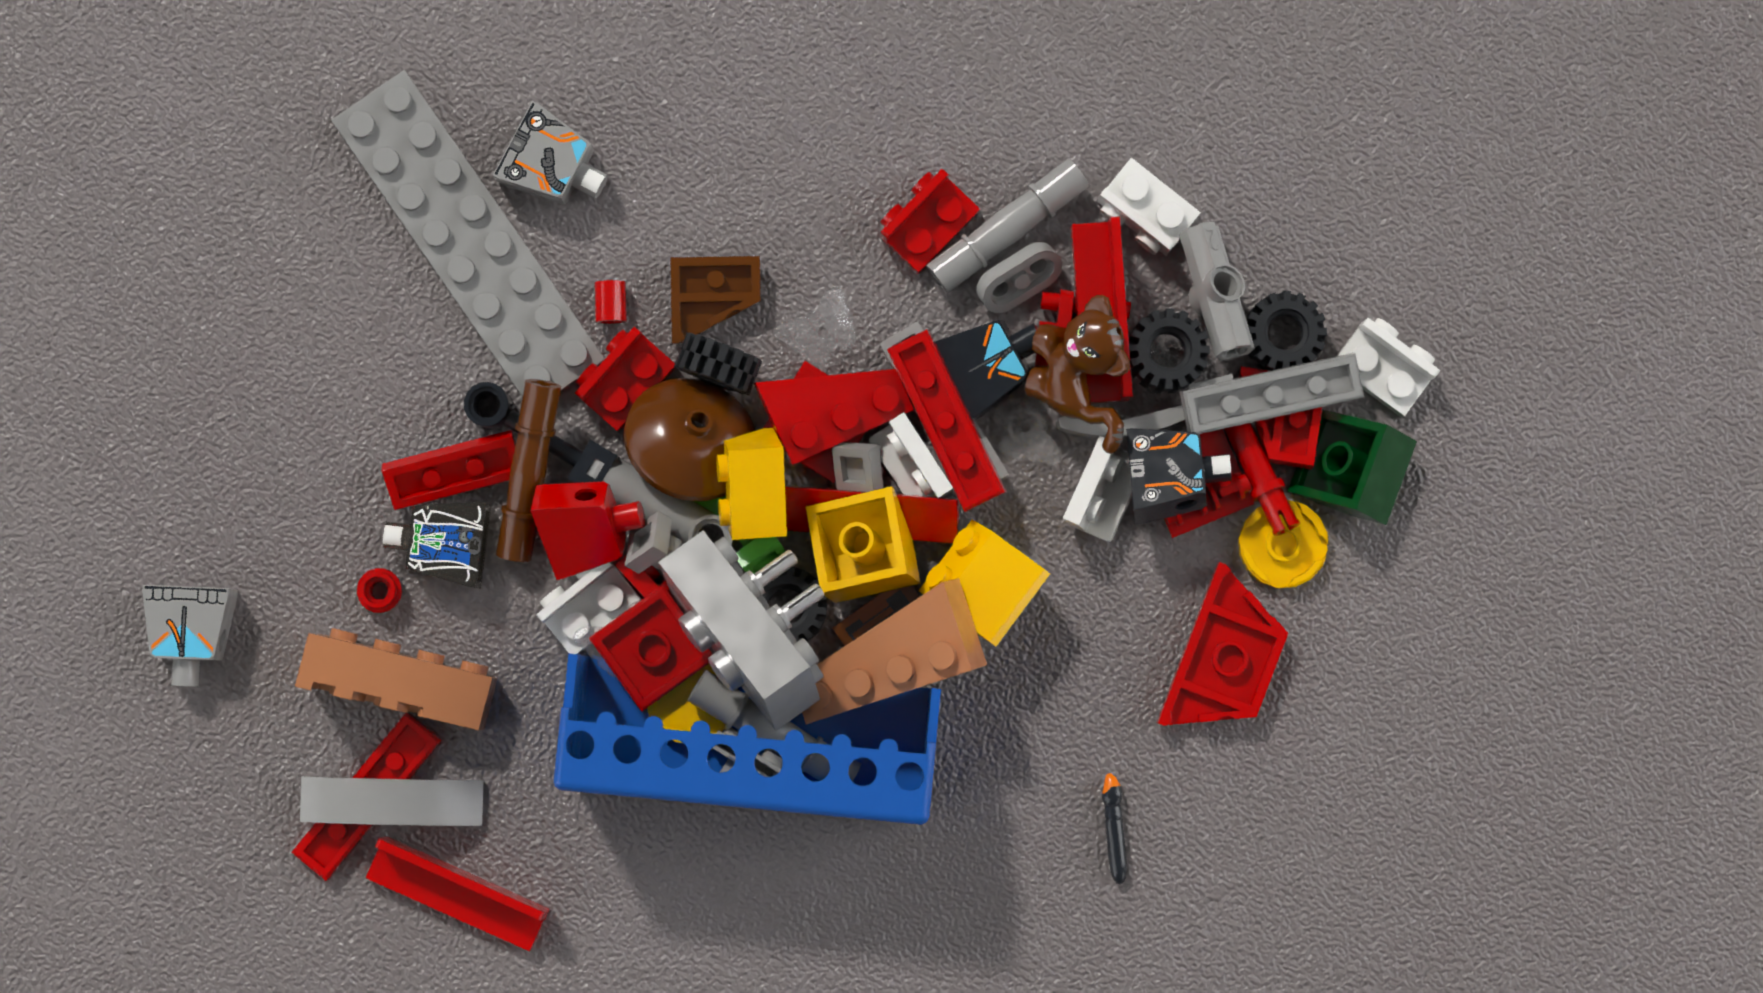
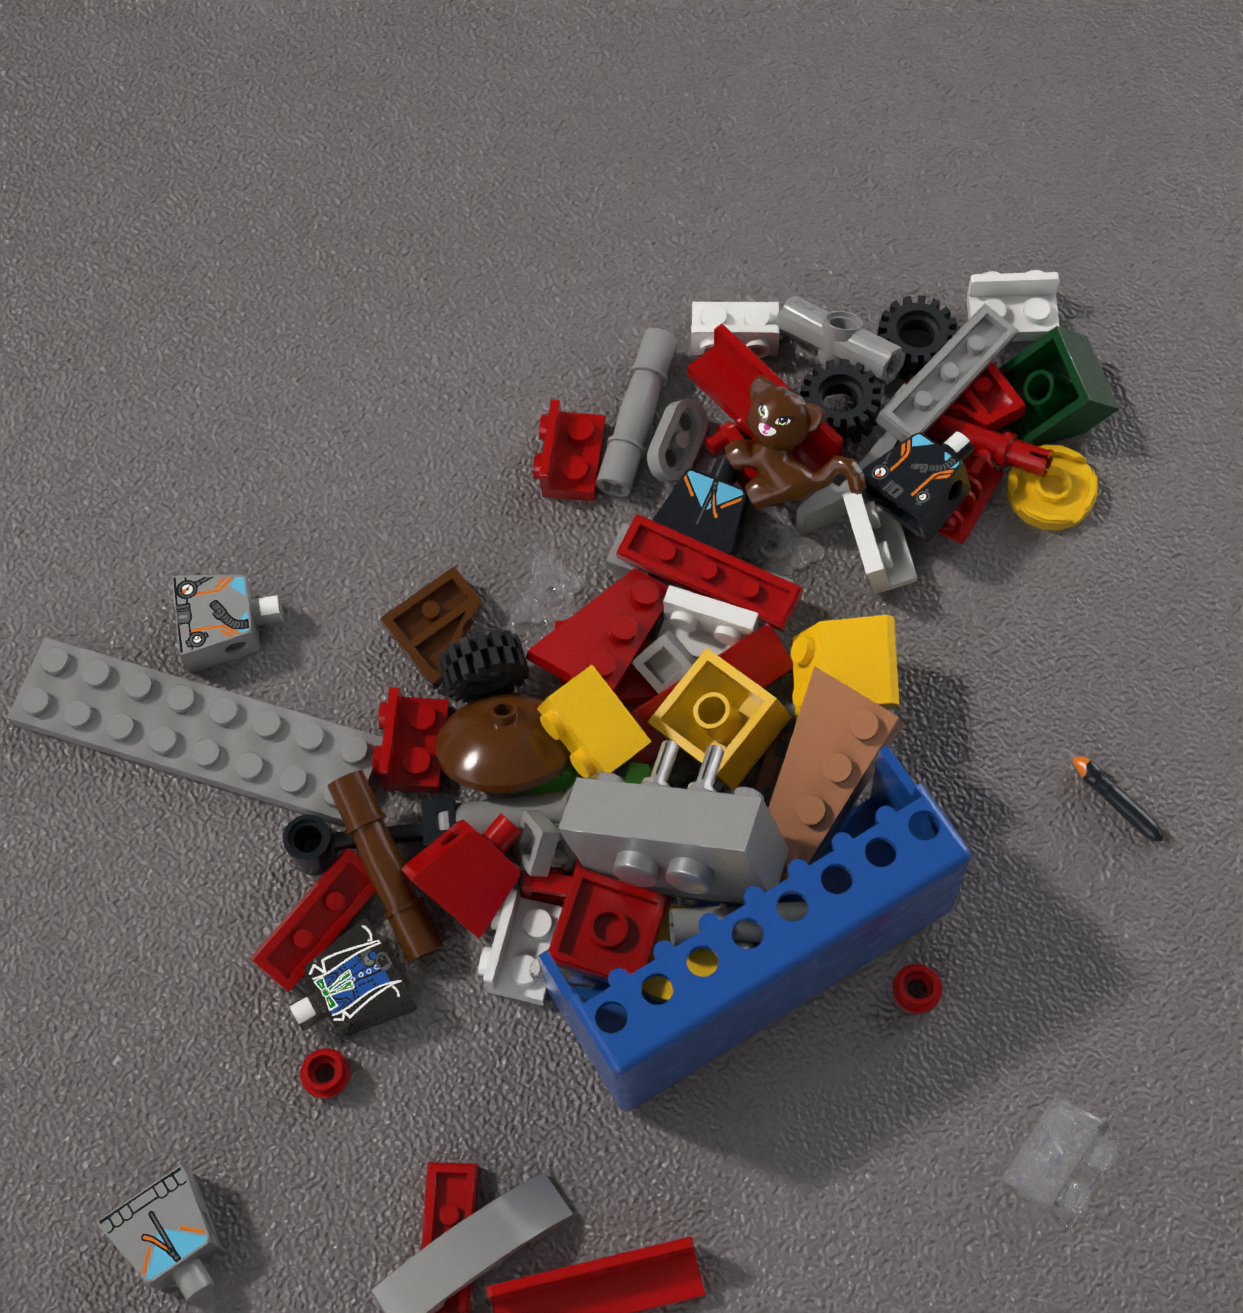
camera: 30 degrees left, 20 degrees down
(397, 680) = (396, 1134): nougat wedge -> none
(610, 302) = (355, 691): red hinge -> none
(848, 869) = (917, 974): none -> red plate
(1225, 657) = (1085, 598): red wing -> none

